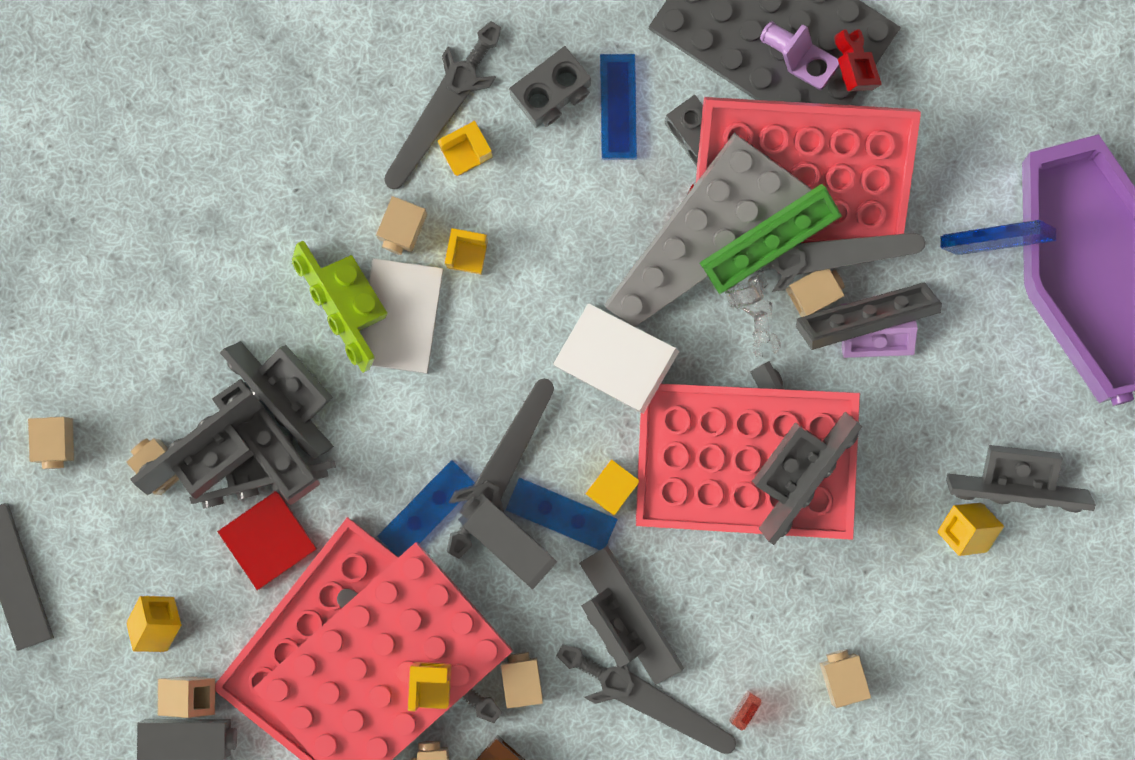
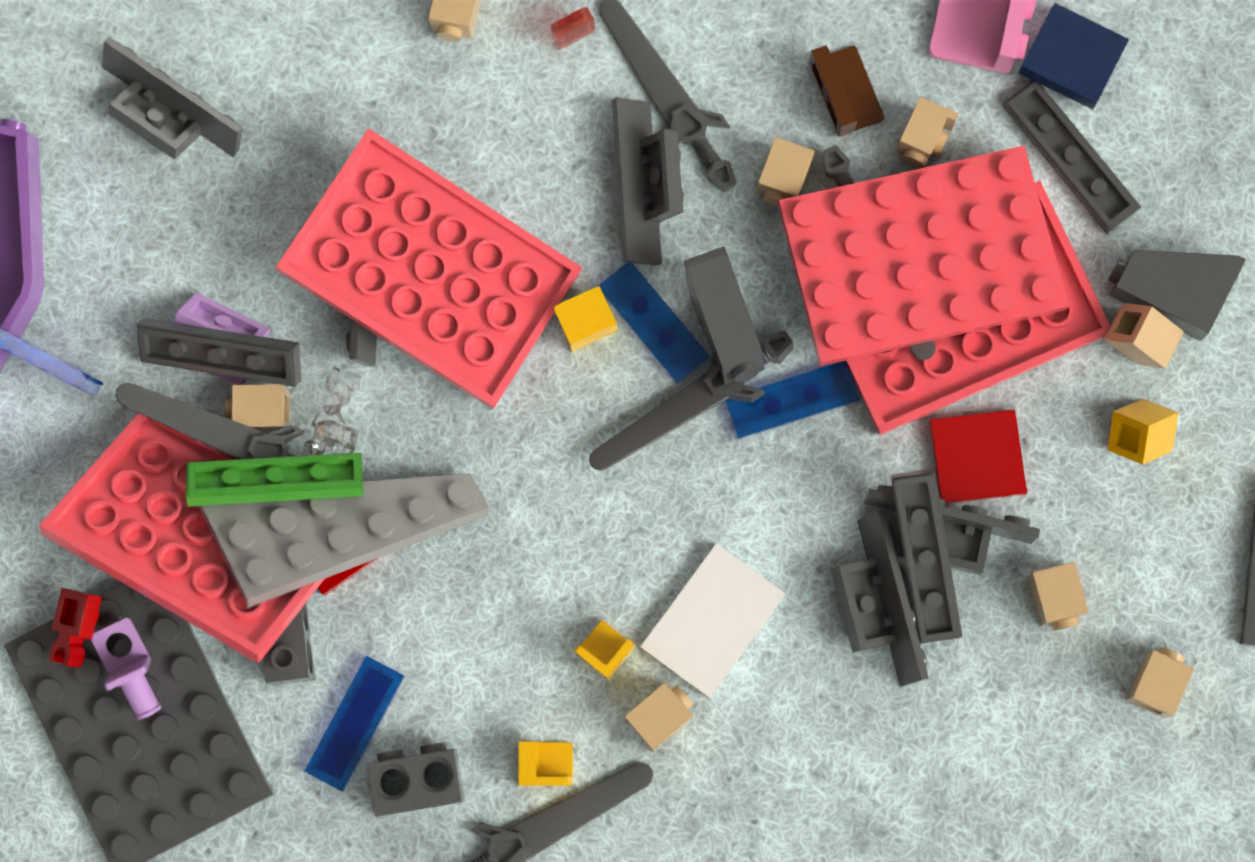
camera: 145 degrees left, 5 degrees down
(205, 453) = (997, 570): dark grey bracket -> none
(345, 298) = (761, 666): lime bracket -> none
(429, 685) = (881, 207): yellow panel -> none
(616, 358) = (507, 448): white tile -> none
(798, 469) = (382, 220): dark grey bracket -> none
(970, 529) = (243, 87): yellow panel -> none

